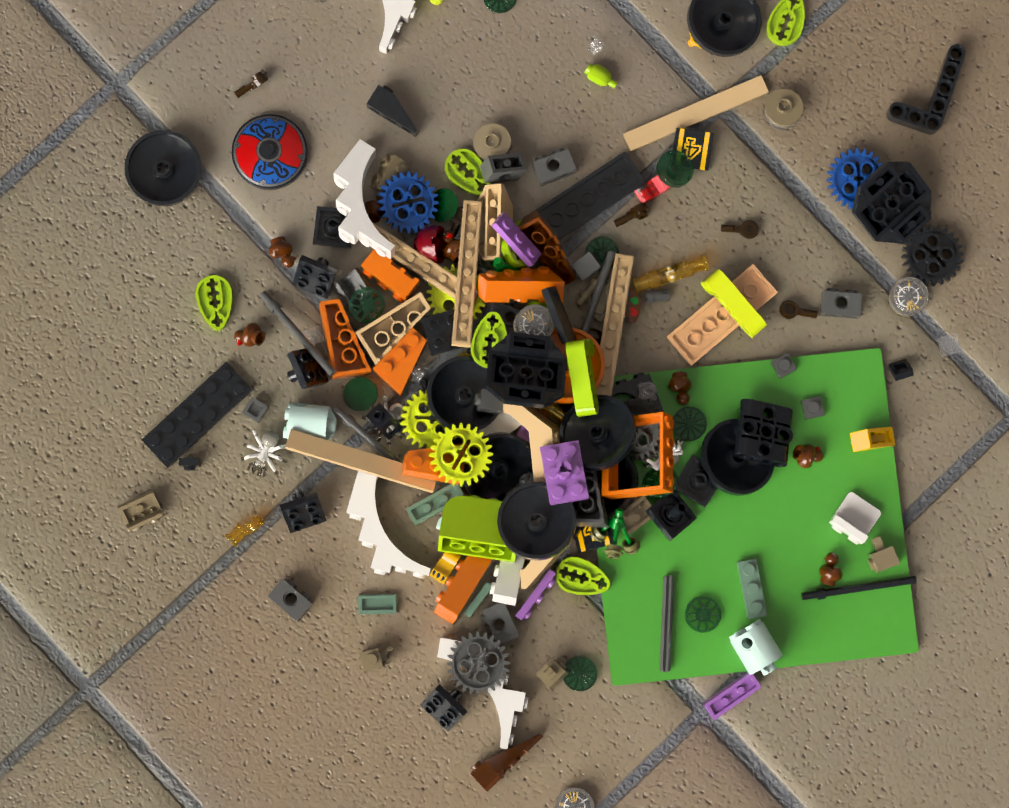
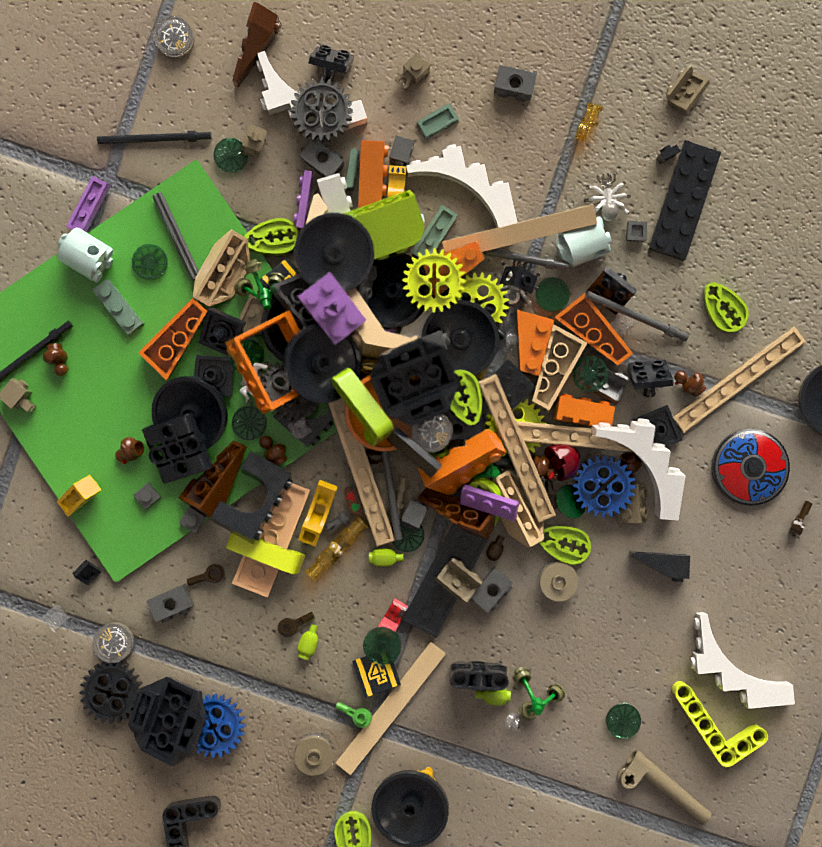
camera: 165 degrees right, 5 degrees up
(237, 232) = (738, 379): none -> tan tile
(250, 336) = (677, 293): reddish brown animal -> none
(302, 512) = (546, 162): black plate -> none
(425, 592) = (401, 151): none -> dark grey brick
(503, 167) = (536, 563): dark grey brick -> none
(531, 200) = (495, 549): none -> dark brown cylinder
(570, 46) = (530, 710): none -> olive plant
(578, 188) = (458, 580): none -> dark tan bracket
(605, 98) = (478, 675): none -> black connector
(606, 709) = (191, 136): none -> black bar
(632, 243) = (384, 557): none -> lime plant
(638, 211) = (393, 590): dark brown plate -> none
(642, 570) = (222, 269): none -> tan wedge
(670, 312) = (318, 513): none -> yellow arch
(693, 358) = (250, 524): none -> black arch
(718, 530) = (171, 342): none -> orange wedge
(725, 118) = (361, 717): none -> bright green plate
(738, 205) = (308, 643): none -> lime plant
(753, 381) = (215, 482): none -> reddish brown wedge
(855, 518) = (58, 416): white bracket -> none

